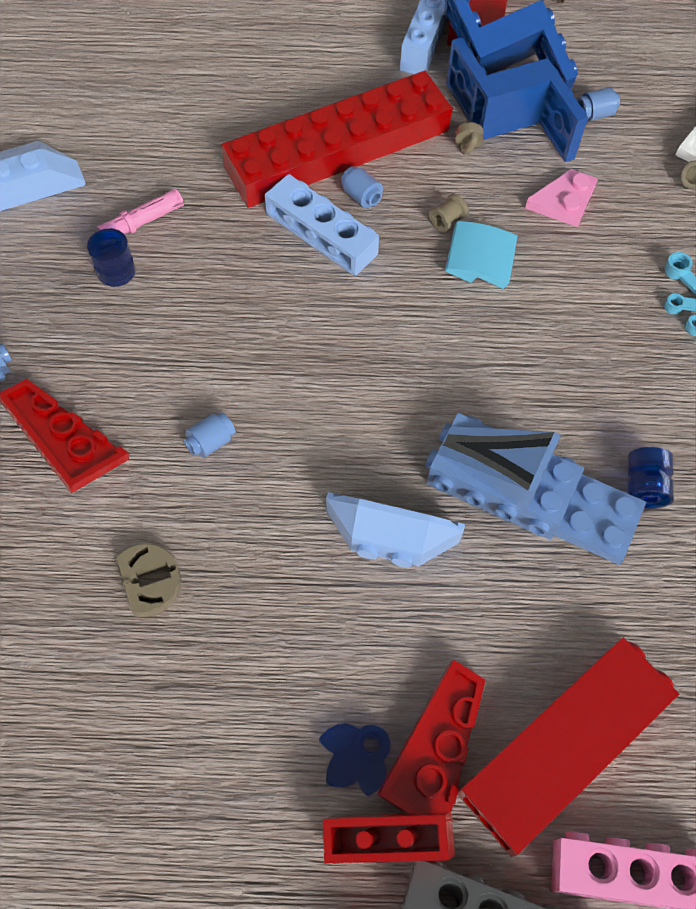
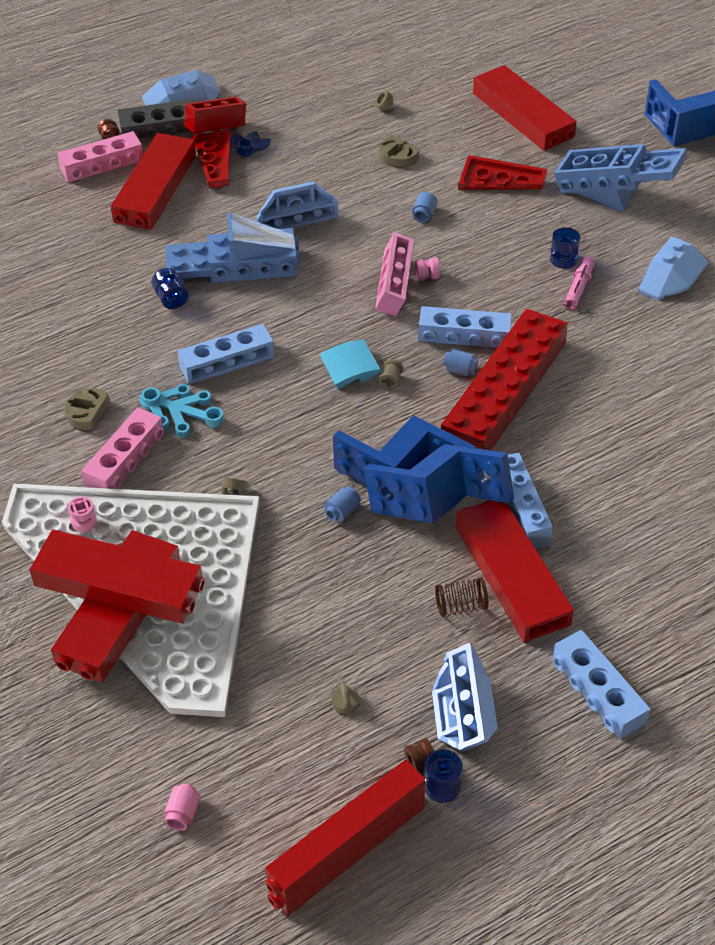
camera: 150 degrees right, 15 degrees down
(70, 714) = (384, 101): none -> dark tan tile
(296, 327) = (427, 269): none -> bright pink wheel
(344, 330) = (394, 274): none -> bright pink brick
(564, 197) = (319, 430): bright pink wing -> none
(624, 337) = (225, 353): none -> light blue brick

